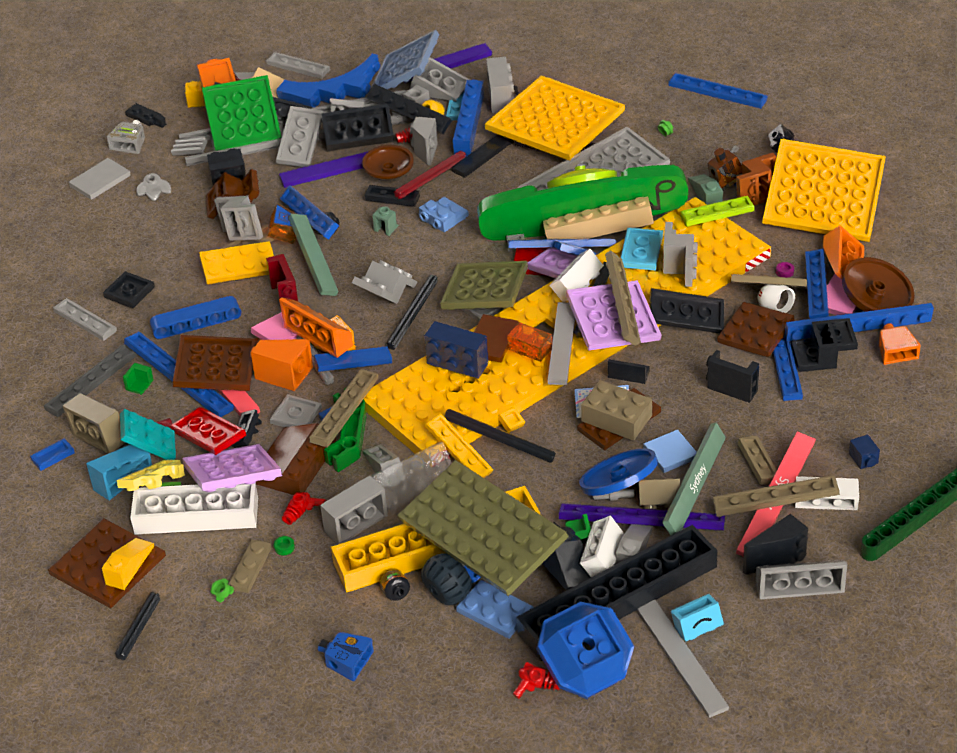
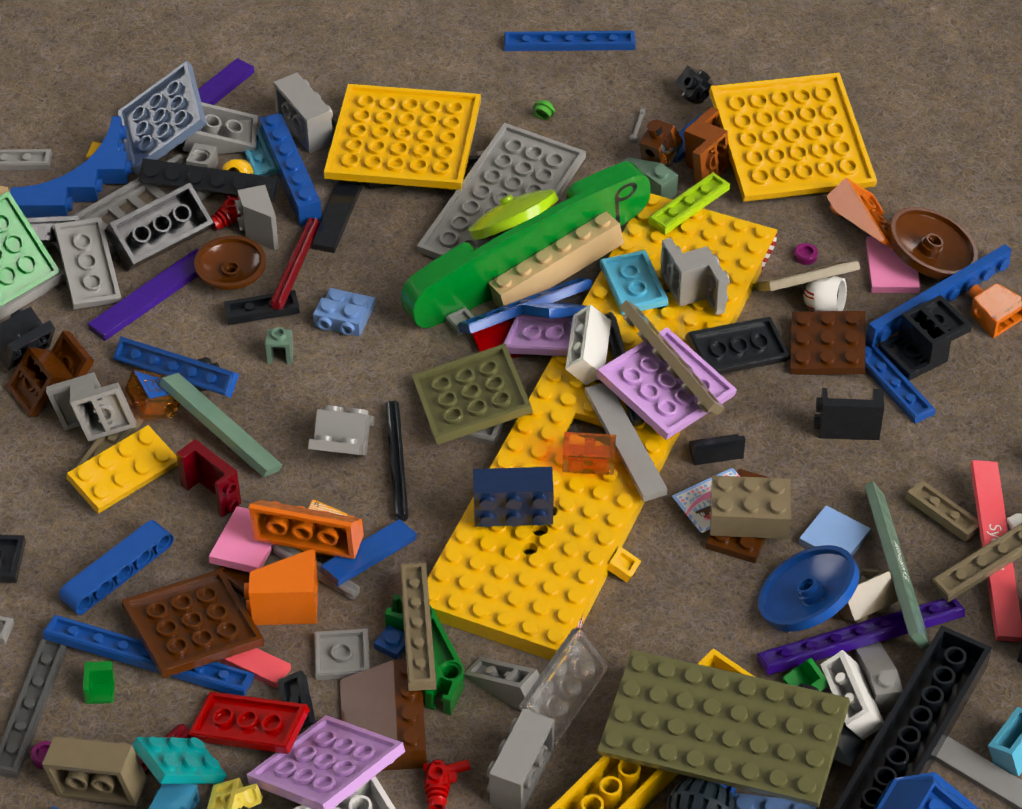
camera: 30 degrees left, 5 degrees up
(344, 104) = (129, 198): light grey plate -> none
(457, 445) = (595, 627): yellow tile -> none
(496, 331) = (536, 450): reddish brown tile -> none
(500, 435) = (629, 591): black axle -> none
(817, 284) = (871, 273): blue plate -> none

